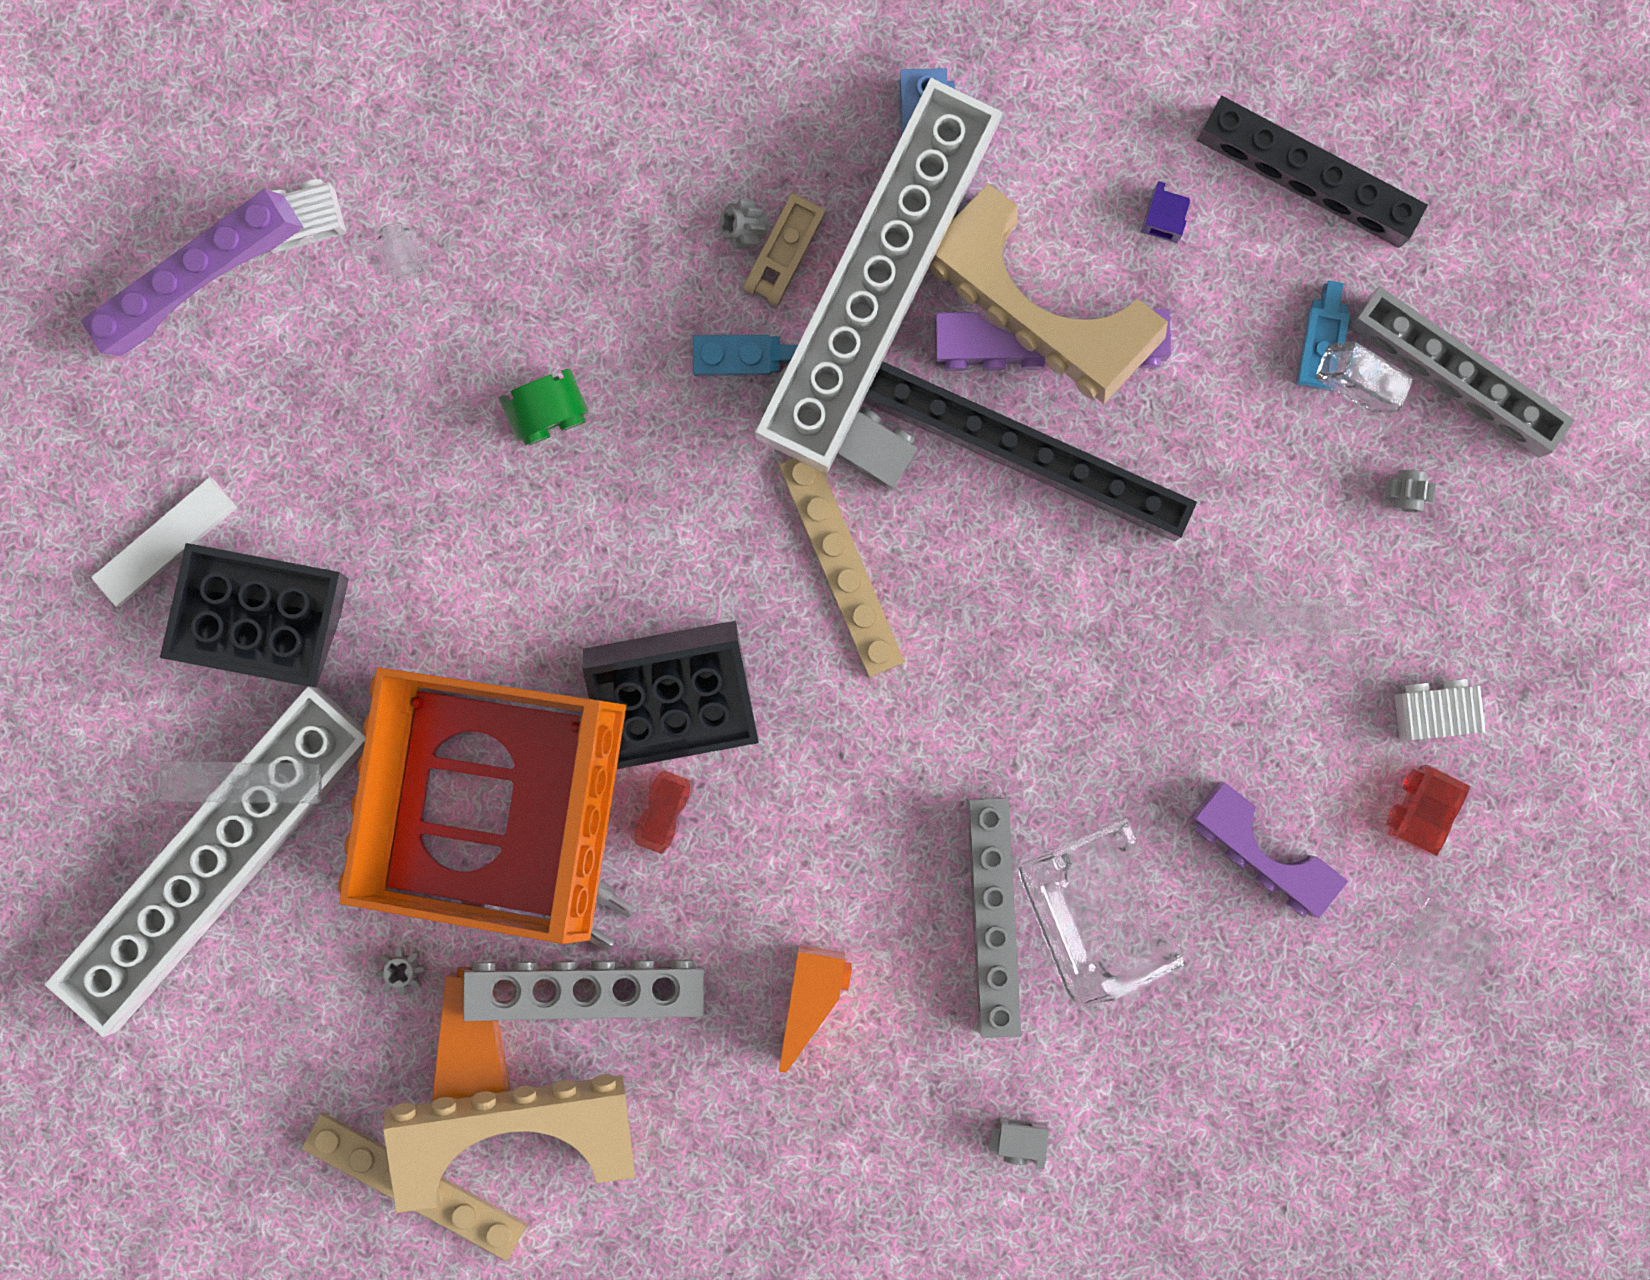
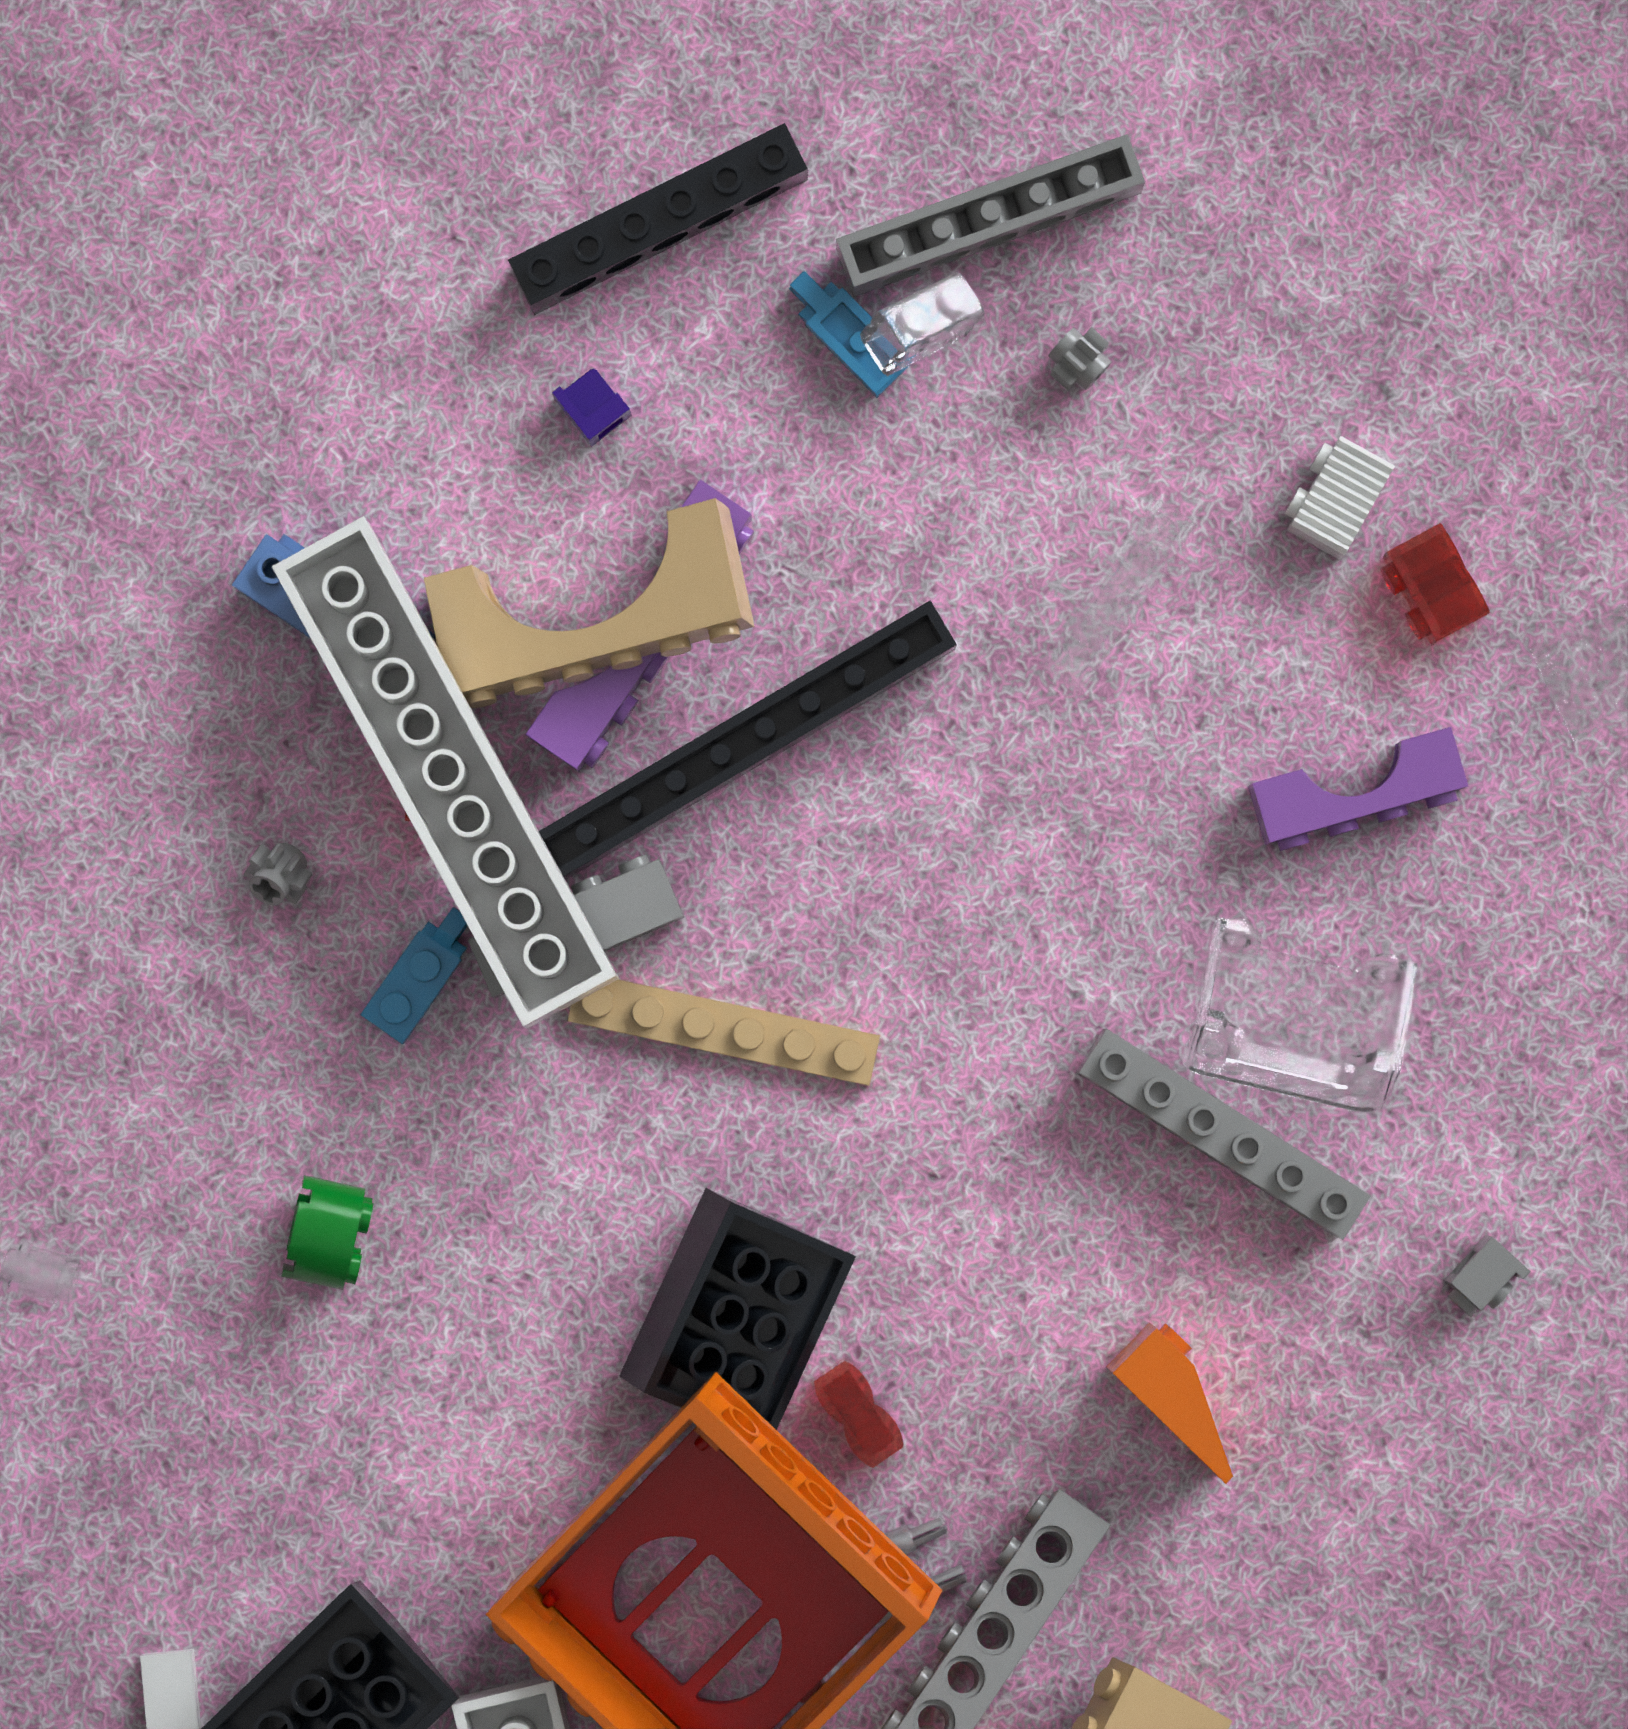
camera: 60 degrees left, 0 degrees up
(785, 248) = (336, 847): tan plate -> none

